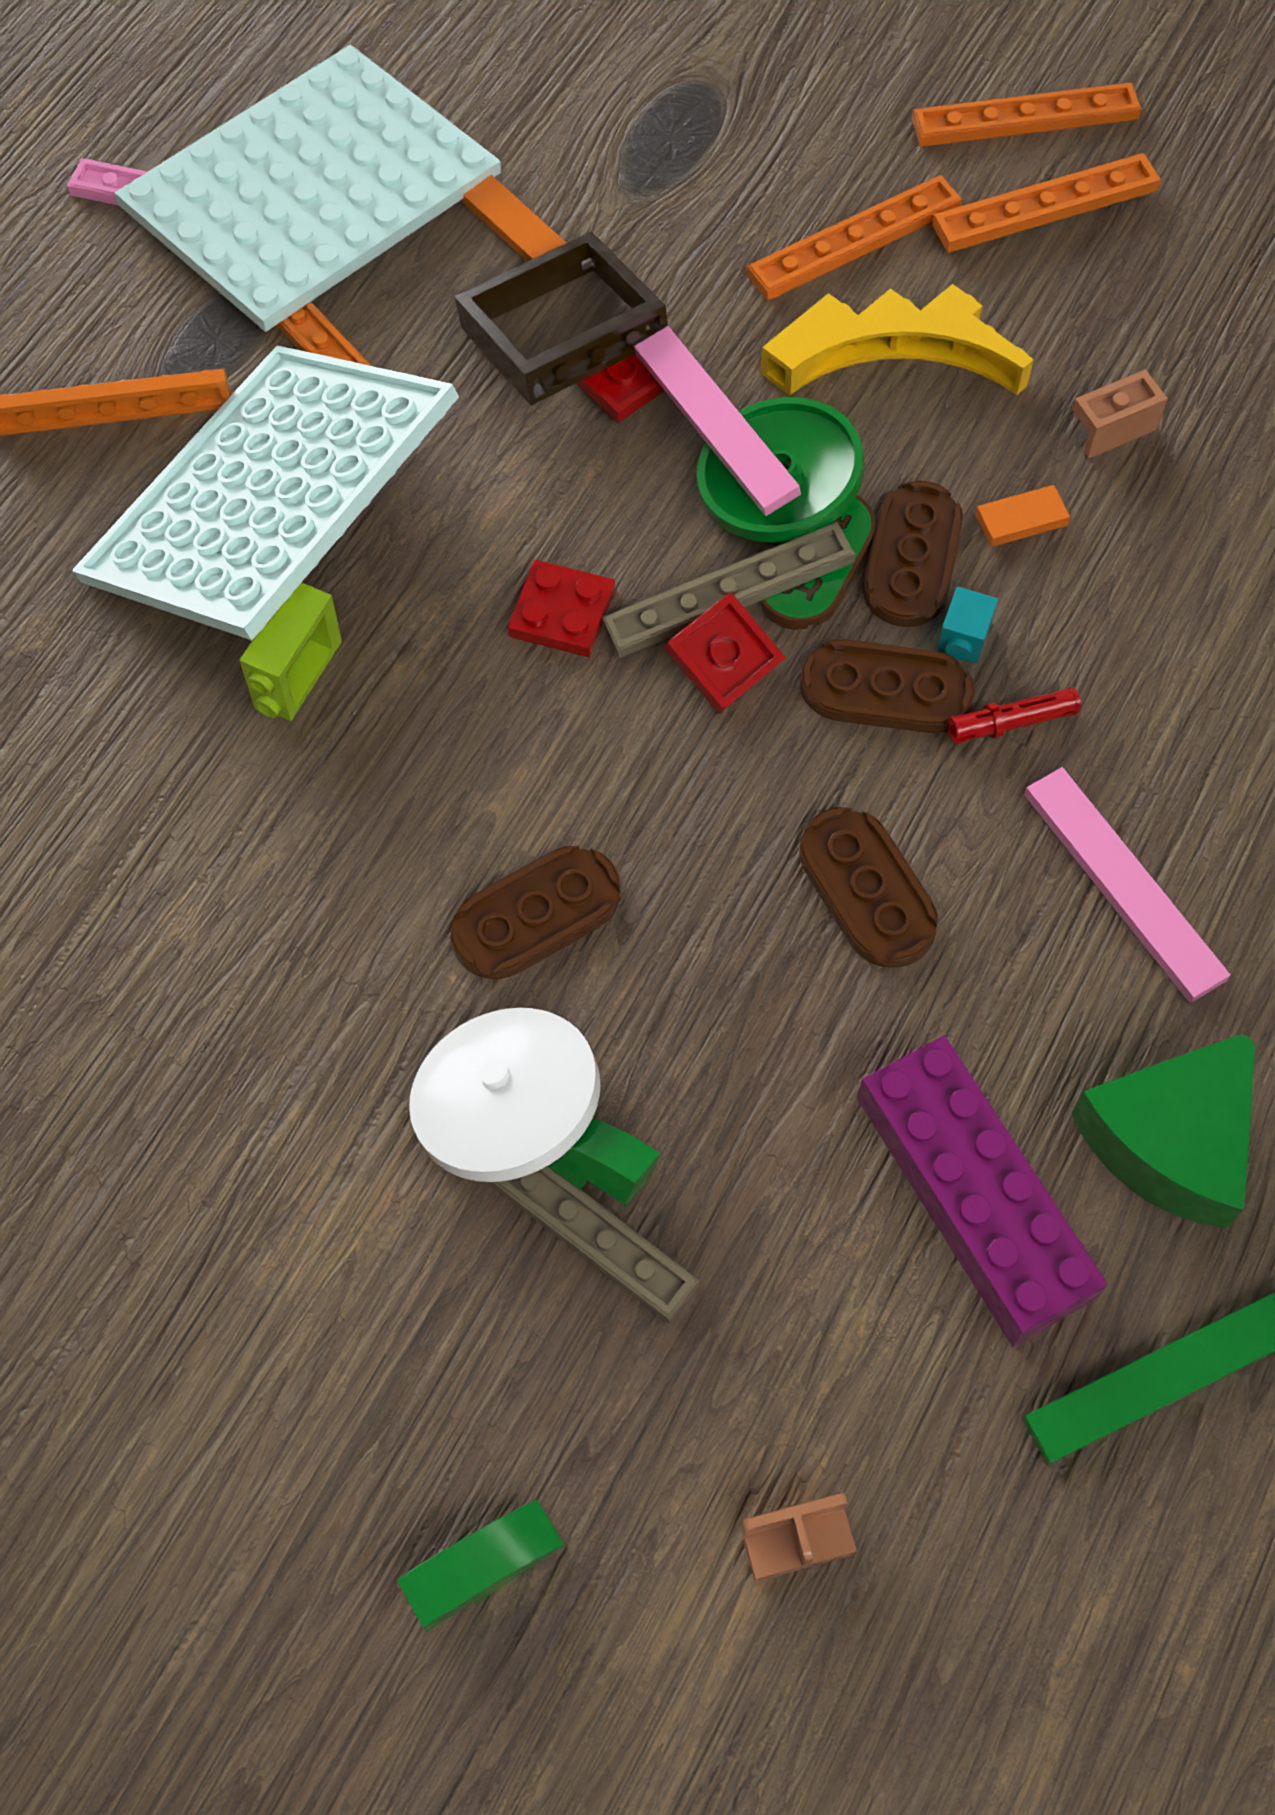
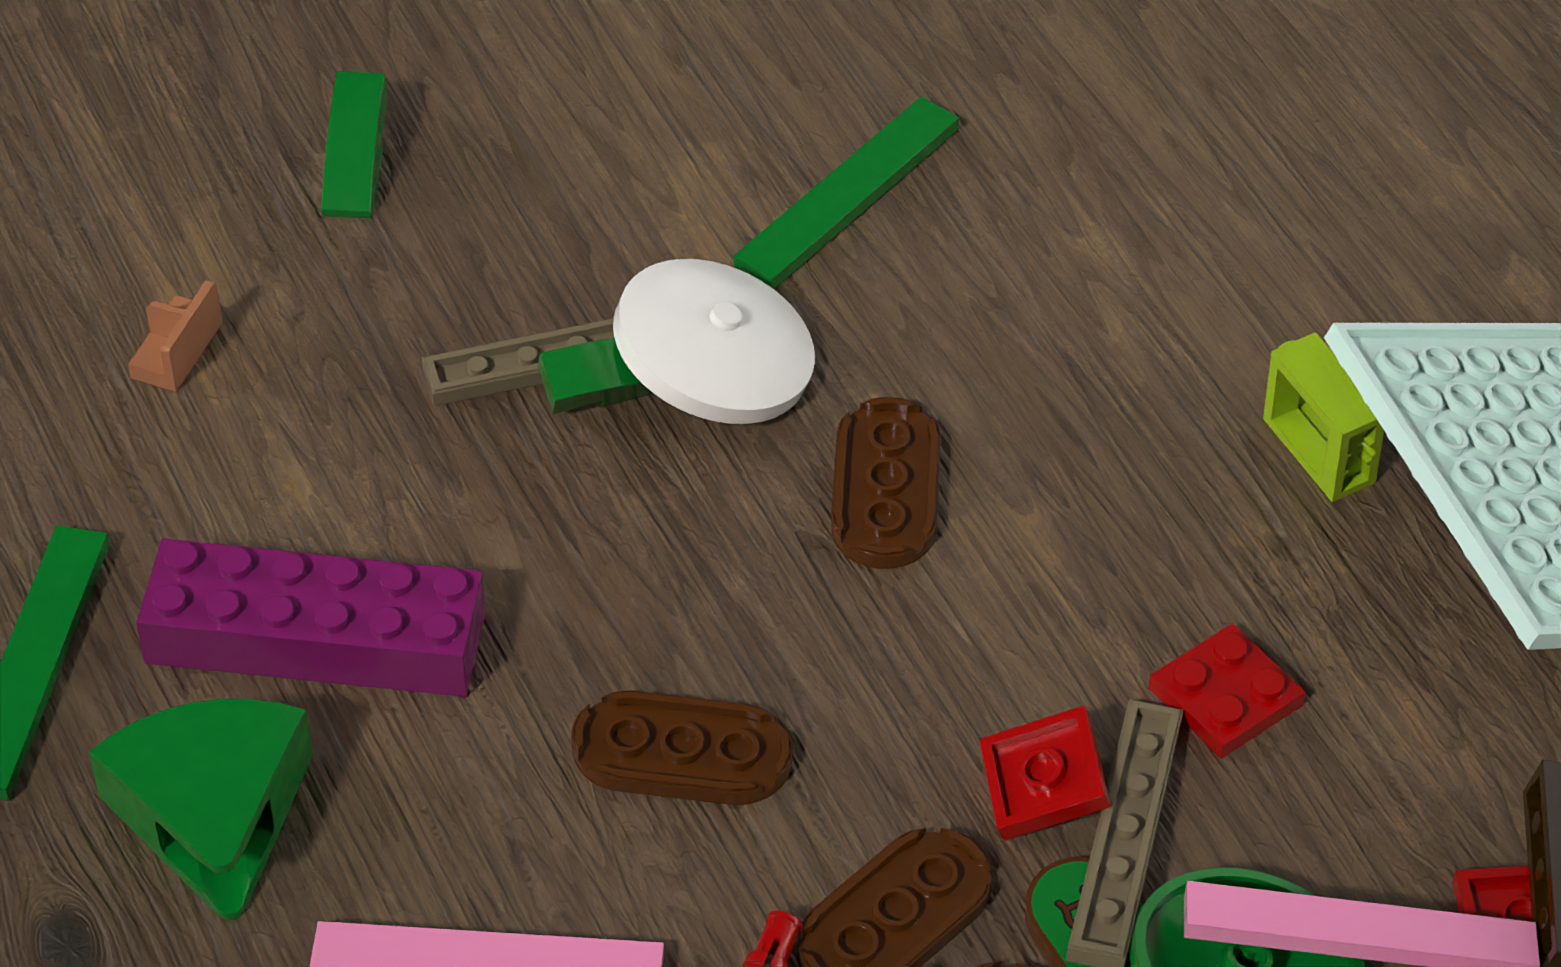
camera: 125 degrees right, 15 degrees down
(249, 1129) = (846, 192): none -> green tile

